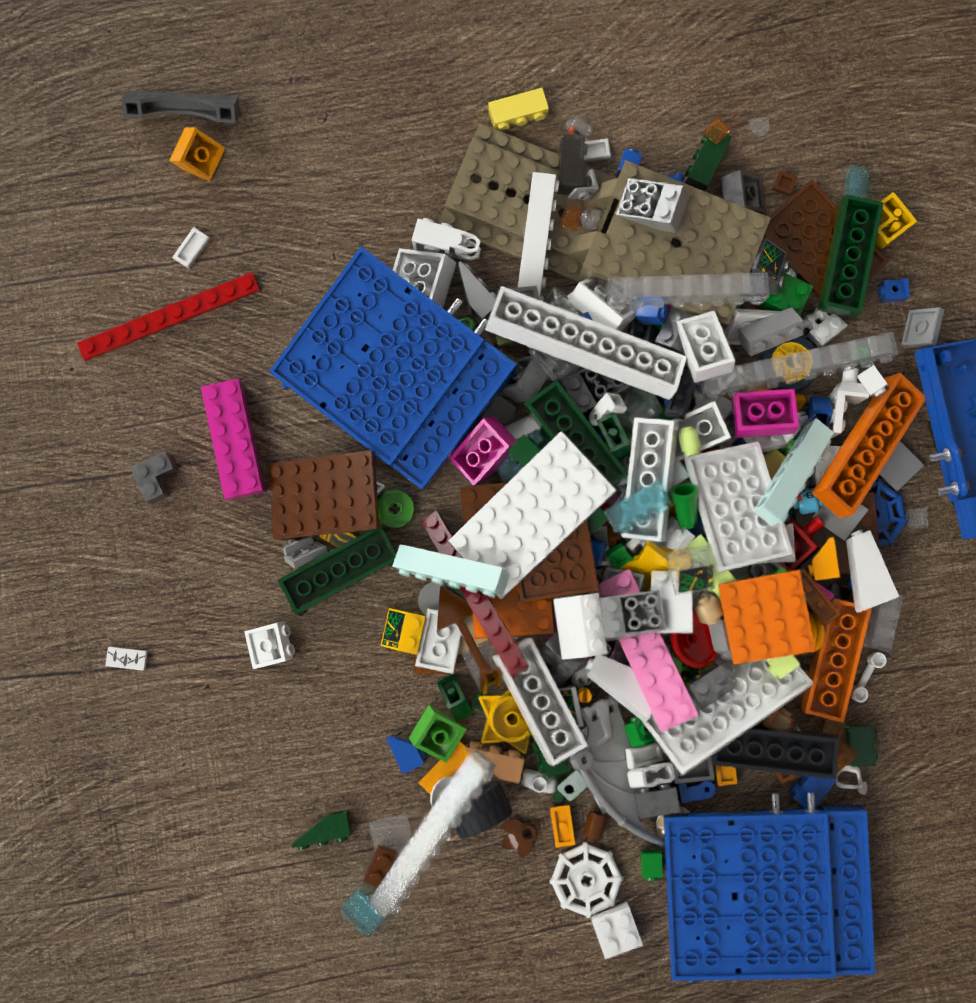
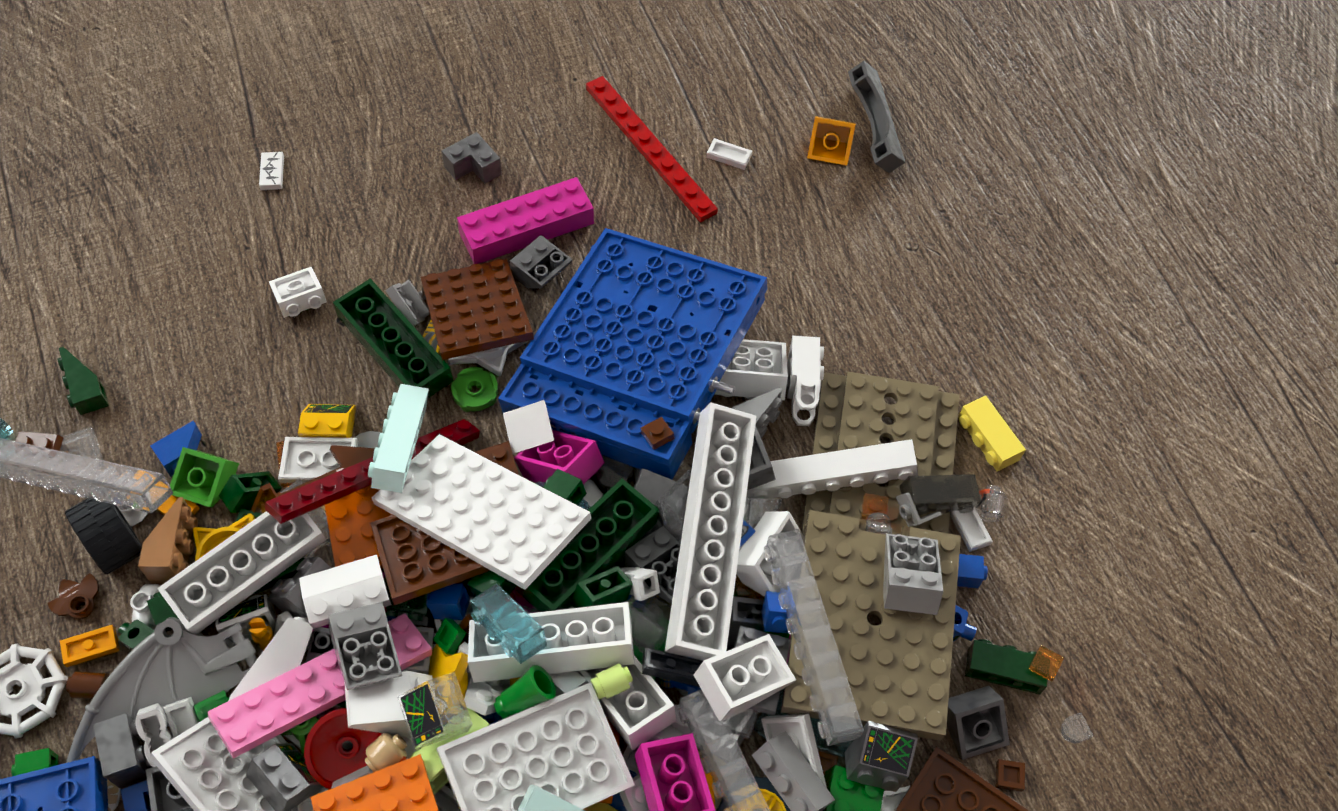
camera: 70 degrees right, 25 degrees down
(285, 434) = (538, 263): none -> flat silver slope
(453, 469) = (528, 426): none -> white sticker
(491, 367) = (657, 433): none -> reddish brown plate

